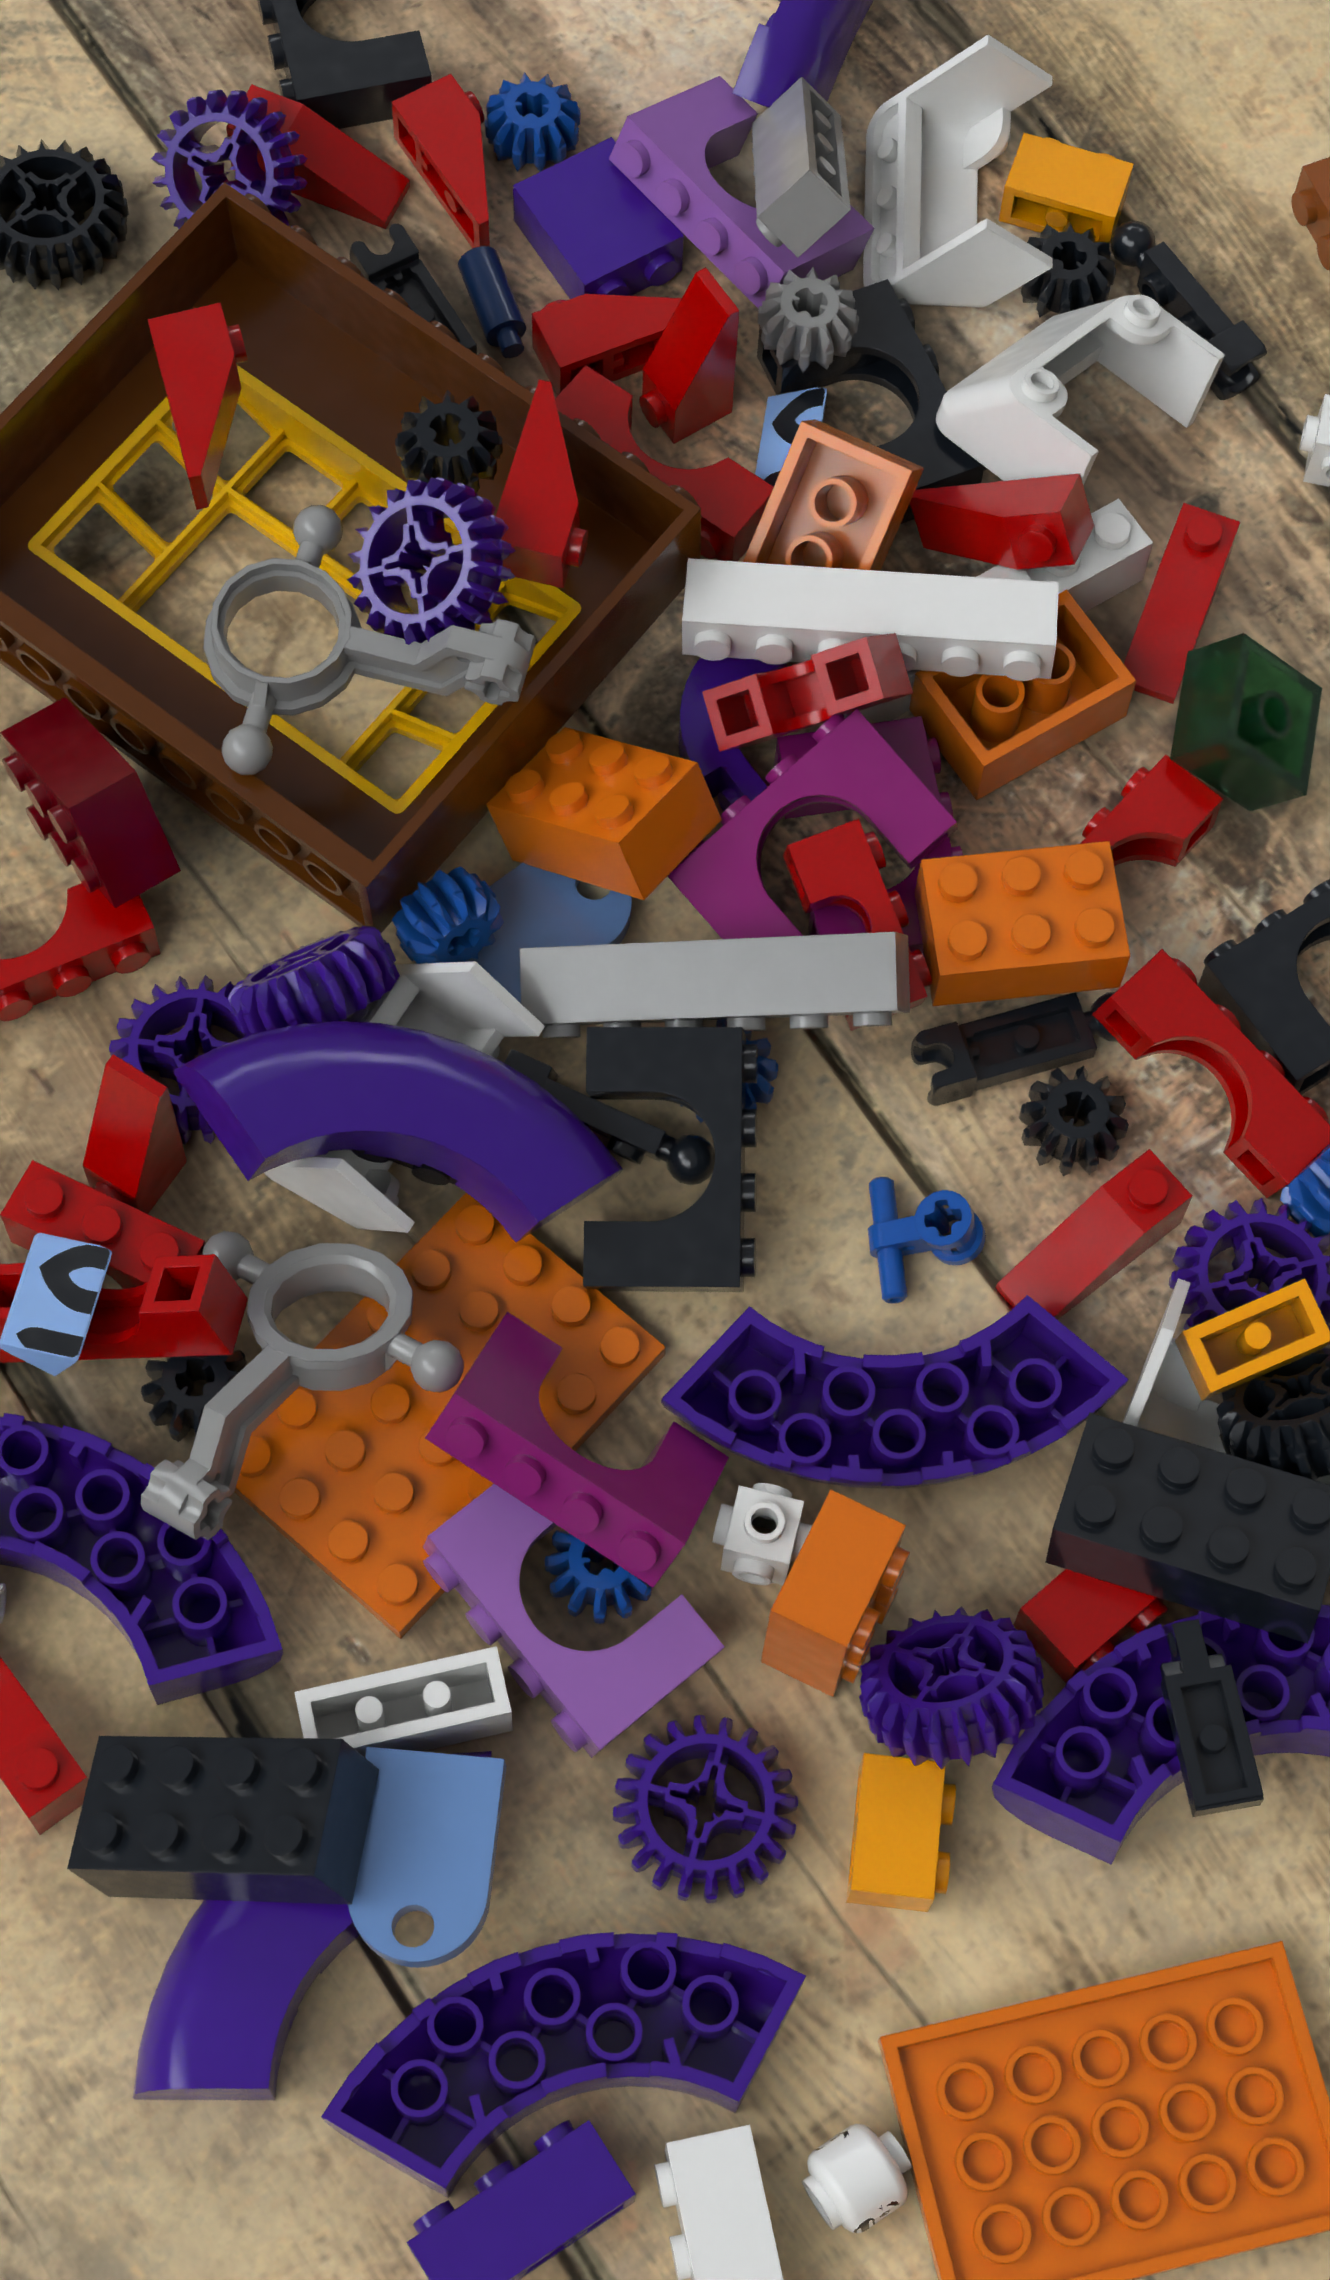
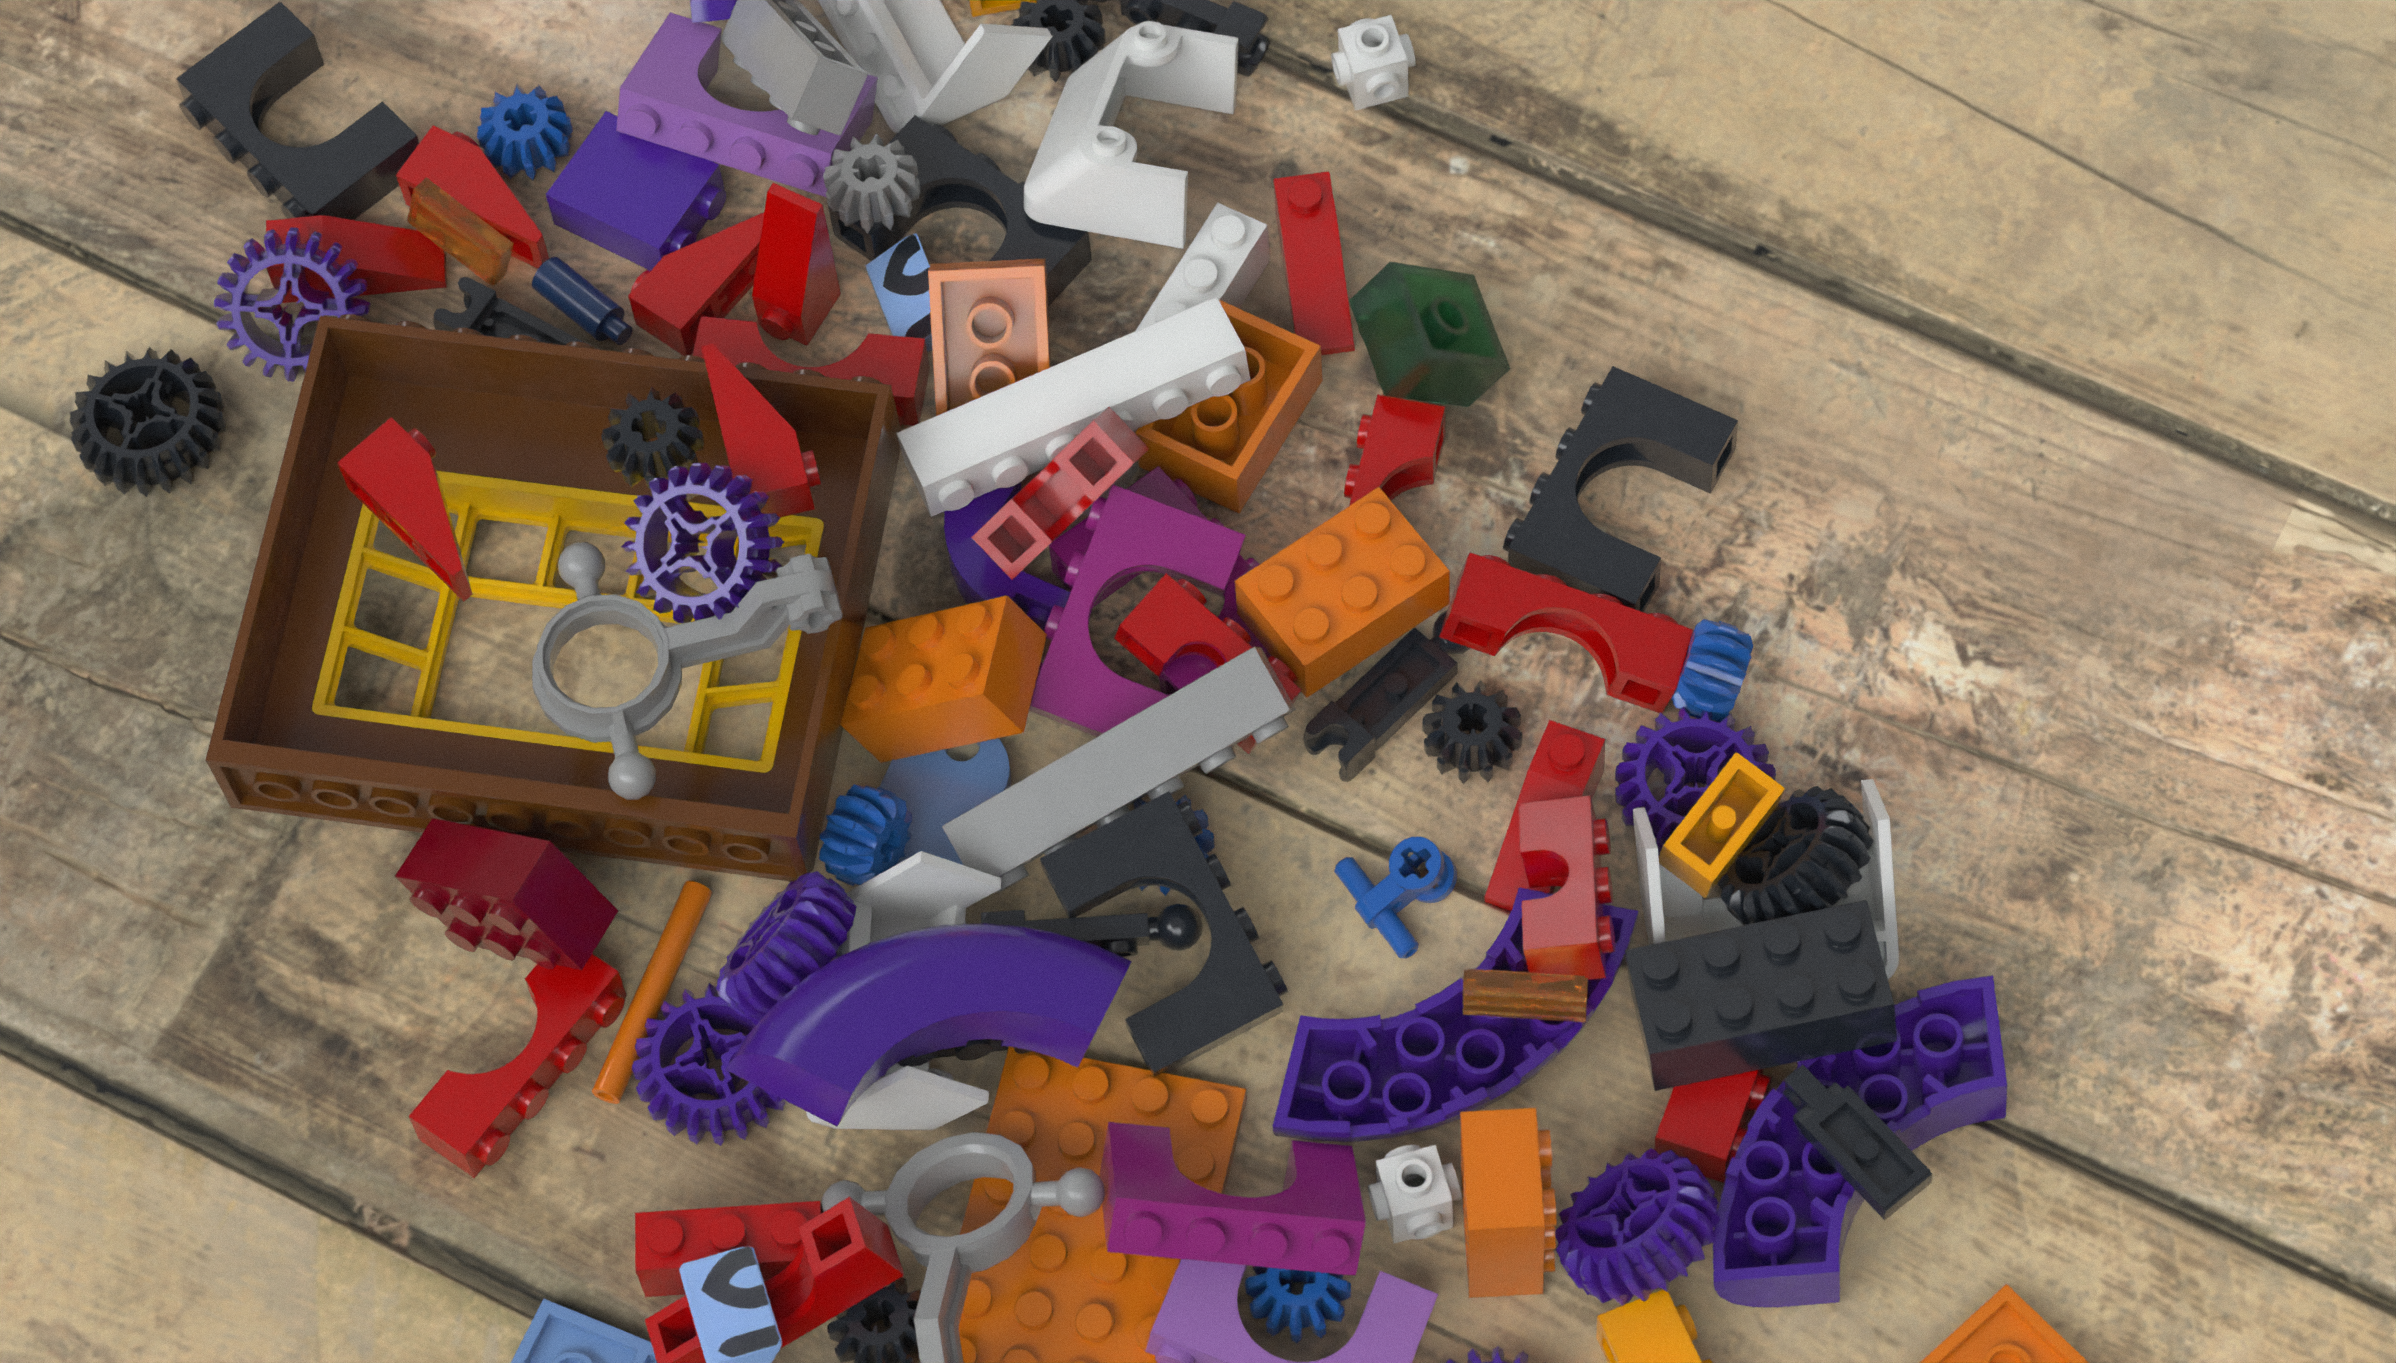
camera: 20 degrees left, 5 degrees down
(133, 1138) = (710, 1145): red slope -> none
(184, 959) = (652, 990): none -> orange piece
(419, 182) = (459, 232): none -> clear orange tile
(969, 1404) = (1525, 995): none -> clear orange tile
(1007, 521) = (1138, 268): red slope -> none
(1047, 1365) = (1564, 849): none -> arch

